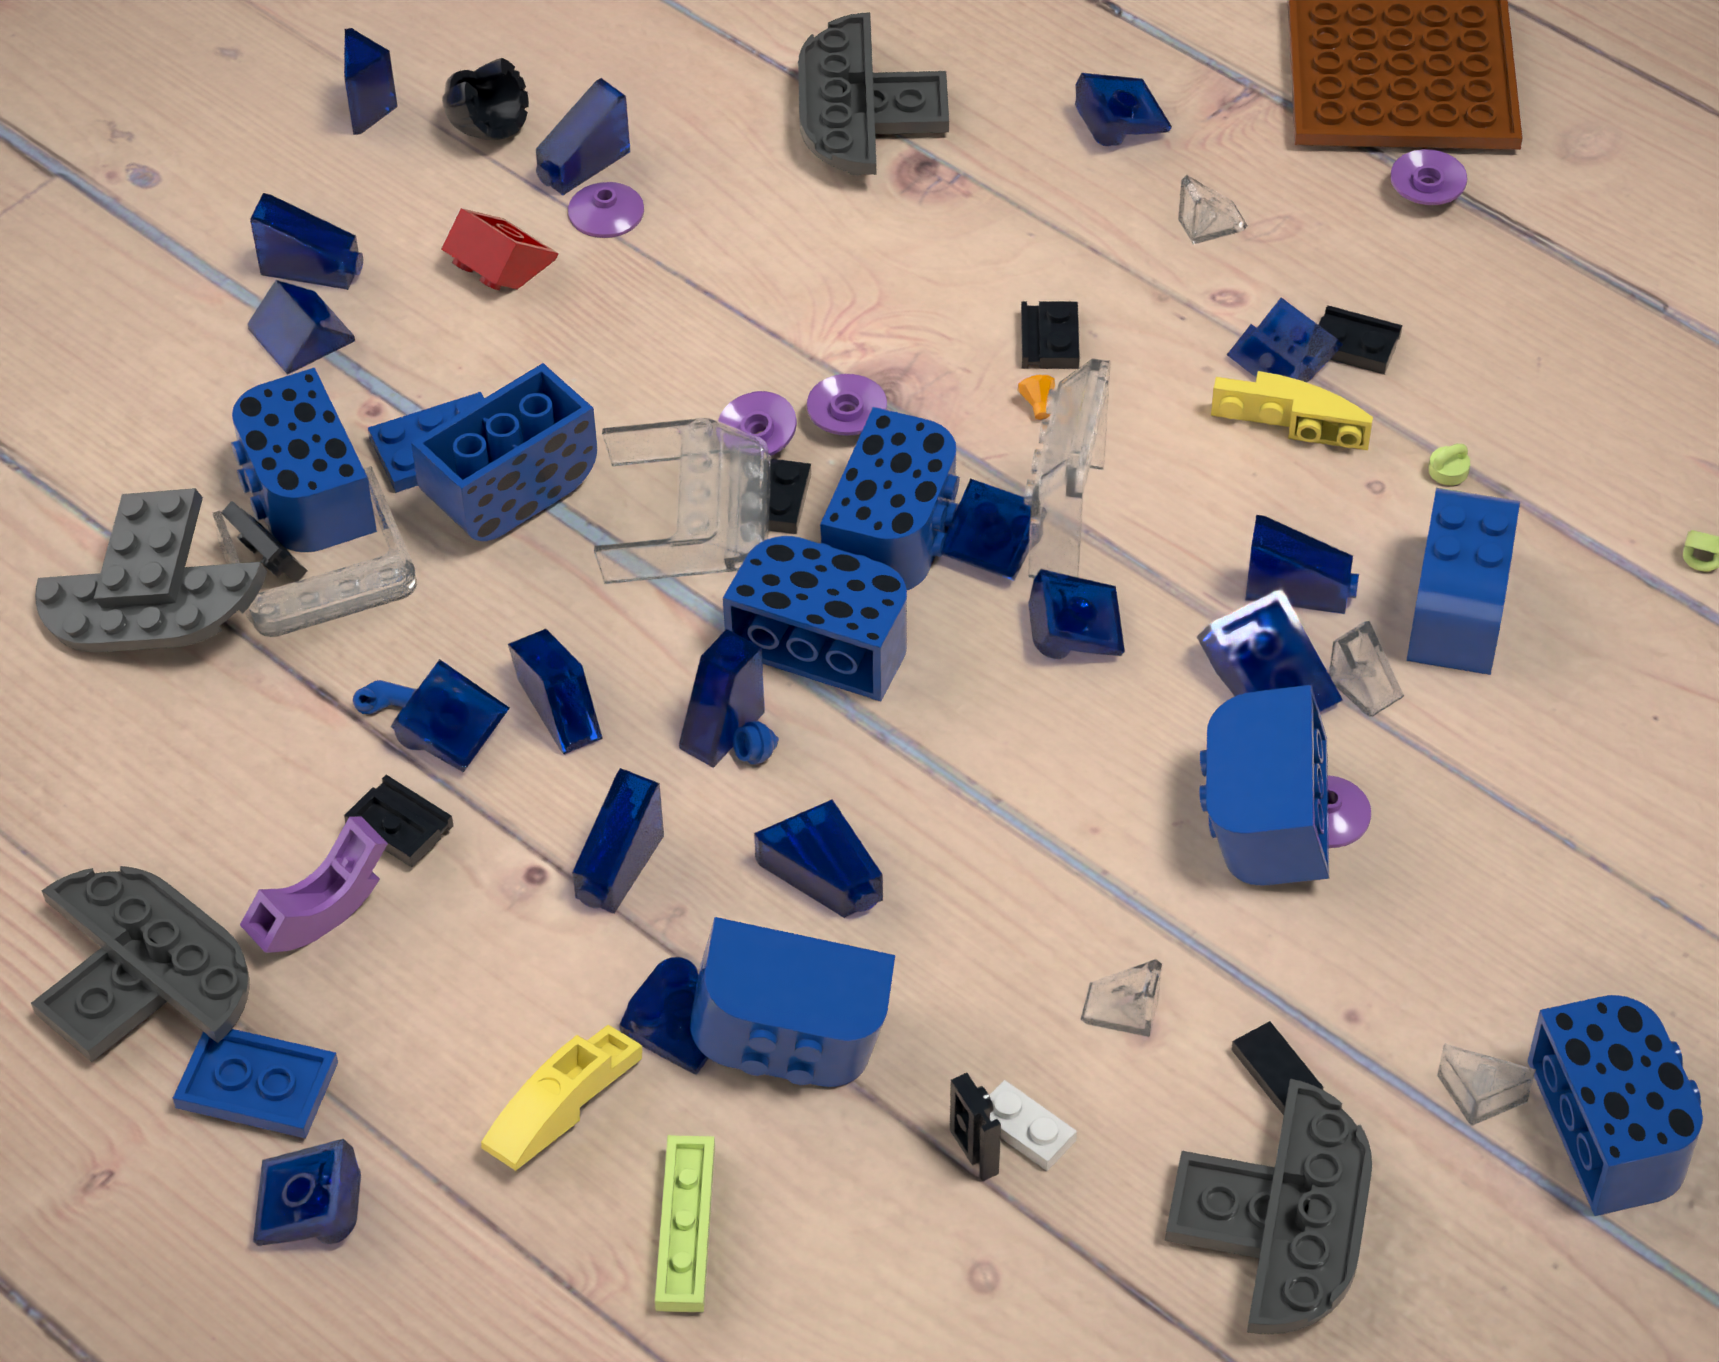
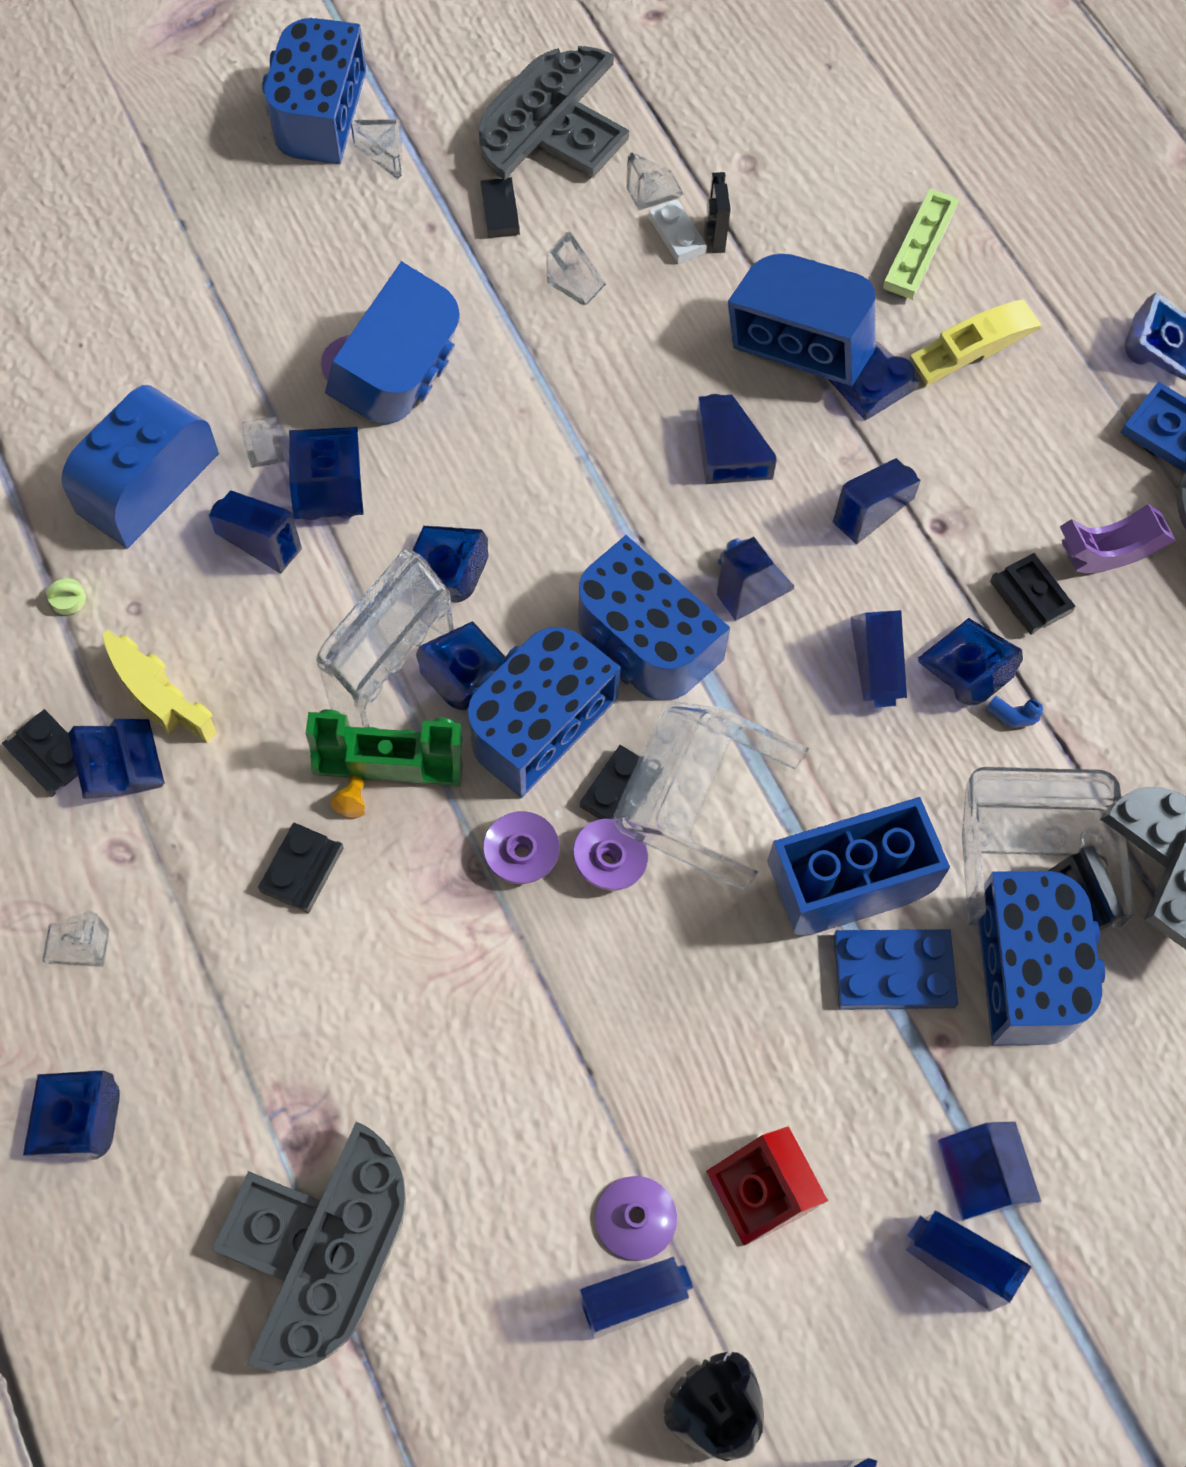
camera: 160 degrees left, 15 degrees up
(1000, 424) = (383, 753): none -> green bracket
(1093, 1166) = (649, 182): none -> clear slope

